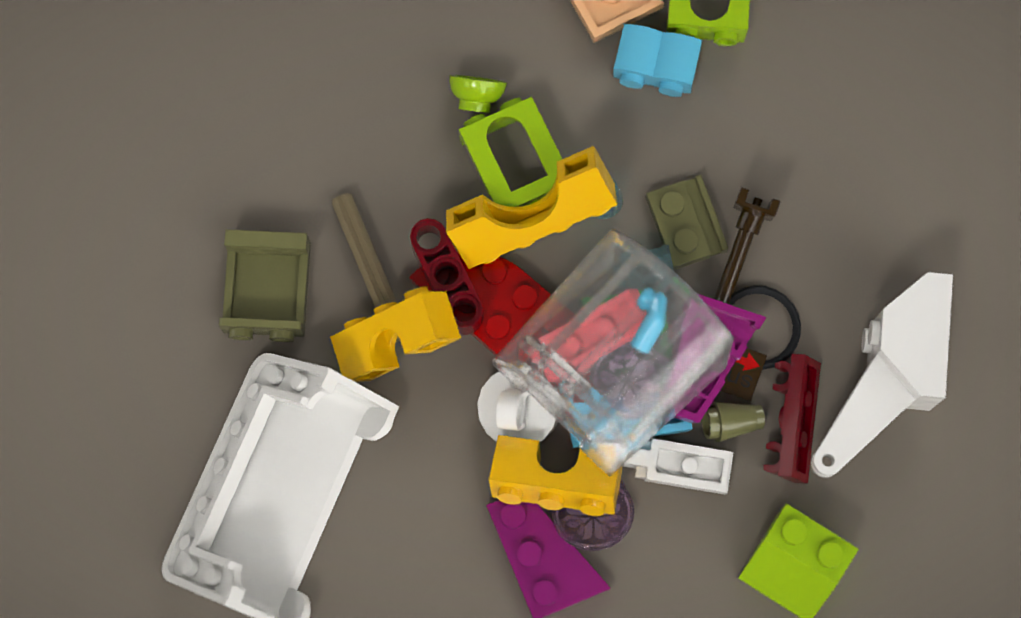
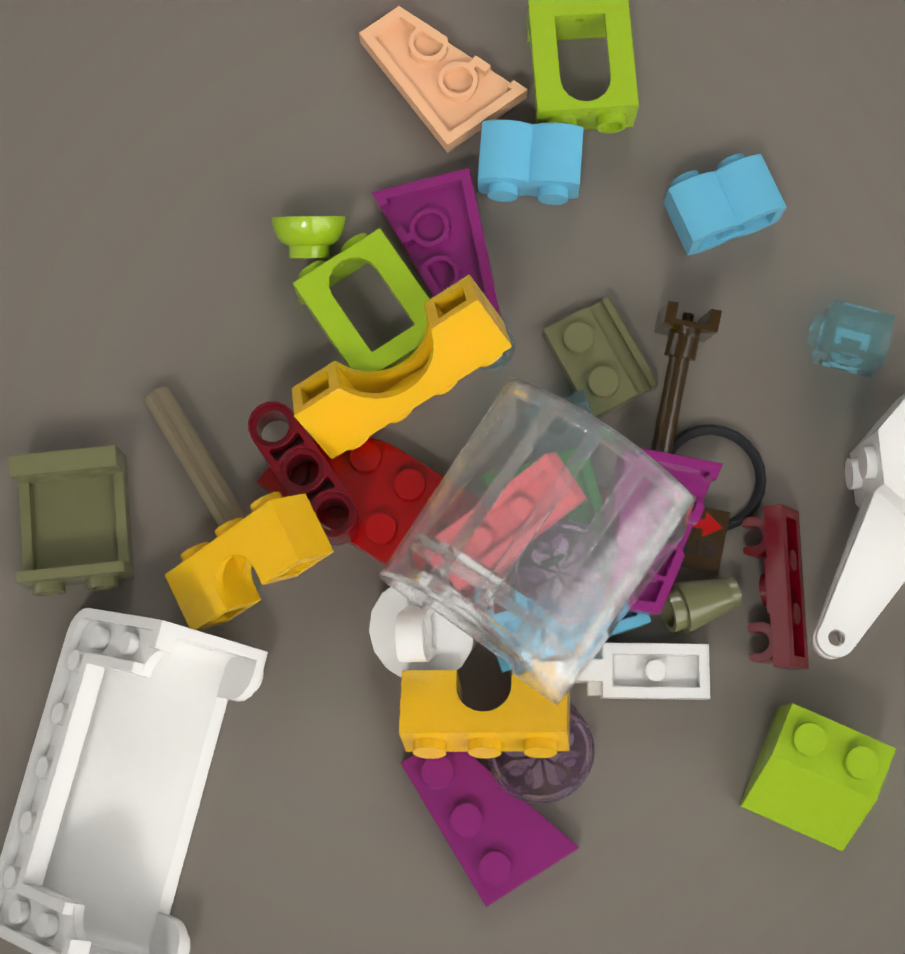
camera: 10 degrees left, 0 degrees up
(580, 106) = (441, 230): none -> magenta wing
(653, 322) = (587, 492): medium azure arm -> none
(802, 115) = (723, 202): none -> medium azure brick
(883, 235) = (851, 338): none -> clear light blue brick

